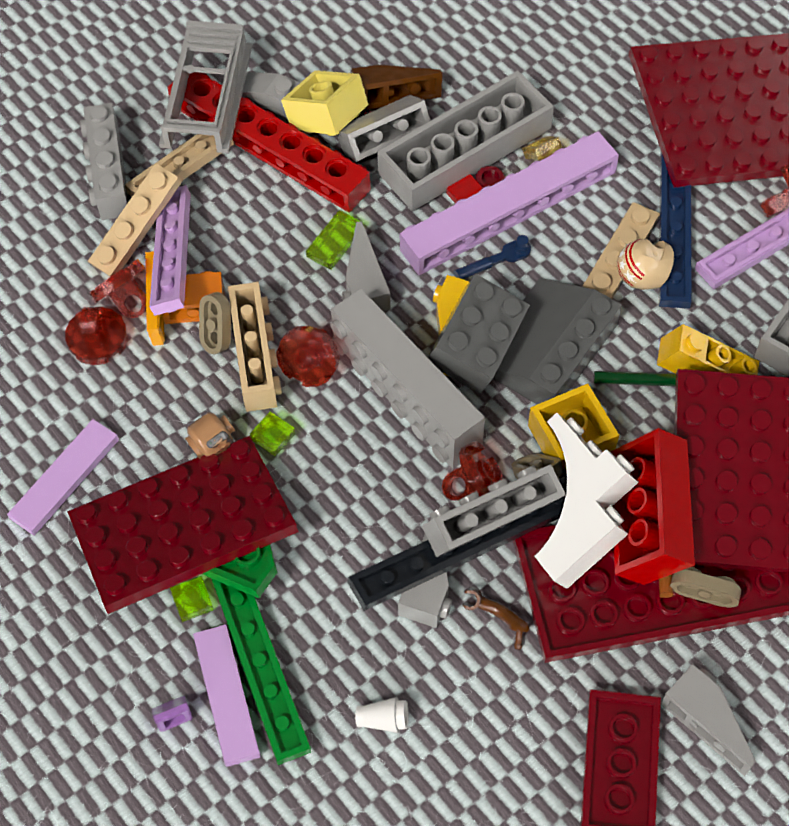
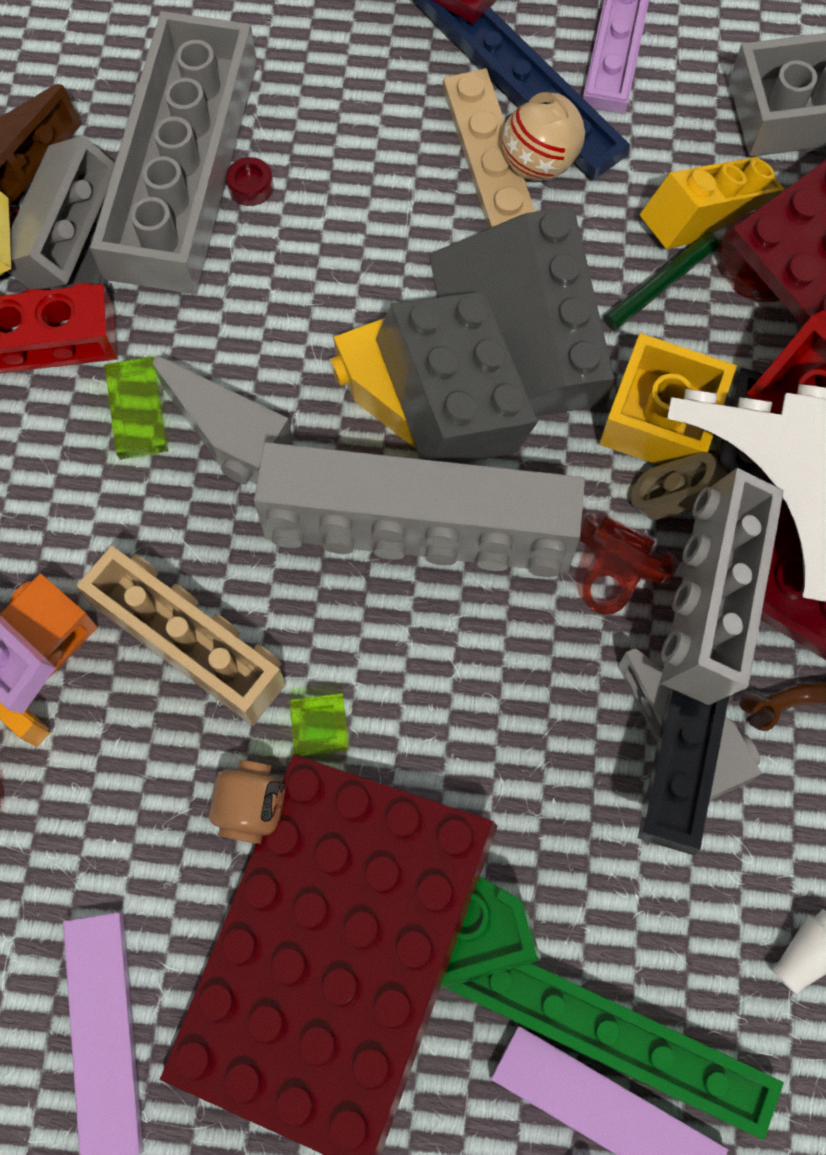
camera: 45 degrees left, 10 degrees up
(191, 599) = (445, 1037): clear neon green plate -> none
(215, 323) = (102, 648): dark tan plate -> none
(308, 355) = (268, 585): clear red tile -> none
(463, 188) = (238, 218): red tile -> none
(508, 202) = (302, 194): lavender brick -> none
(511, 252) = (364, 250): dark blue piece -> none
(542, 148) = (275, 92): clear yellow plate -> none

